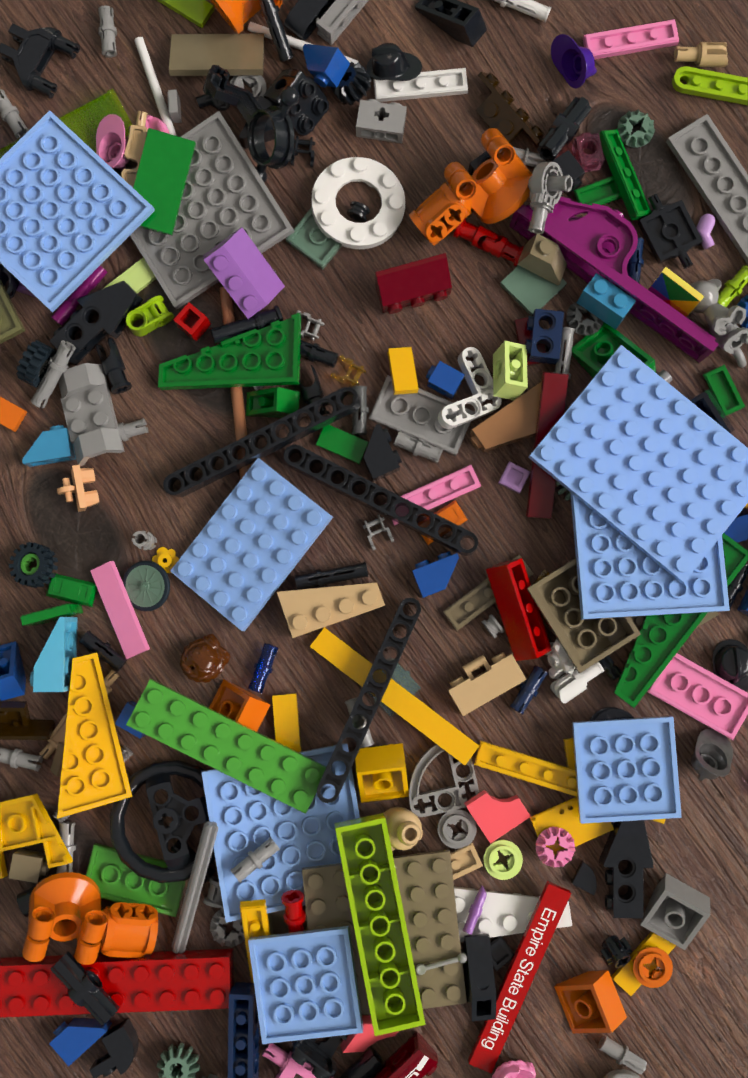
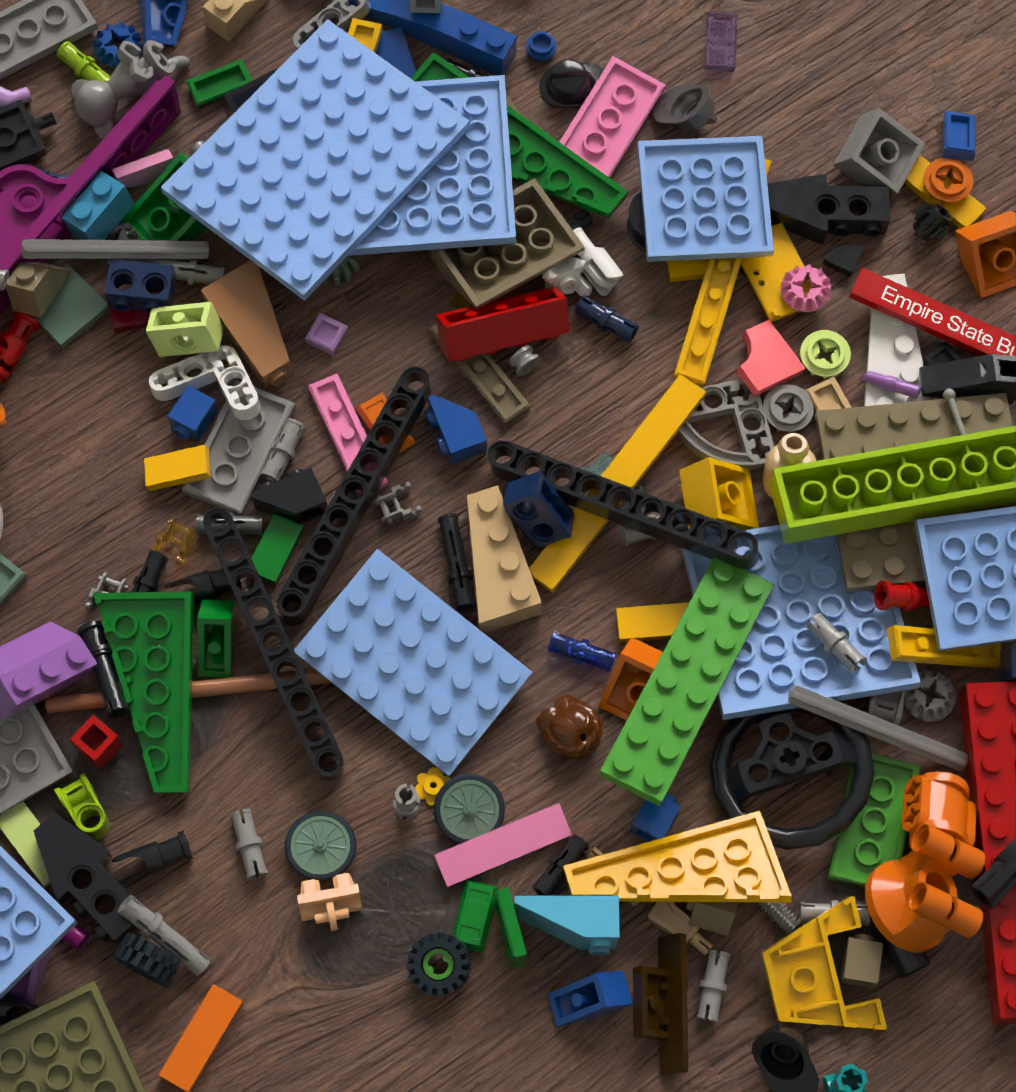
camera: 95 degrees left, 15 degrees down
(50, 448) = (269, 940): dark azure slope -> none
(89, 412) = (223, 886): light grey piece -> none
(121, 481) = (320, 845): none -> sand green wheel
(365, 636) = (538, 509): none -> dark blue brick
(413, 283) = (60, 450): dark red slope -> none
(496, 679) = (602, 368): tan piece -> none
(550, 411) = (250, 279): dark red tile -> none
(571, 312) = (114, 249): none -> light grey axle
(645, 334) = (143, 169): none -> bright pink tile
(675, 292) = (90, 126): tile -> none
(693, 978) = (958, 136): none -> blue tile

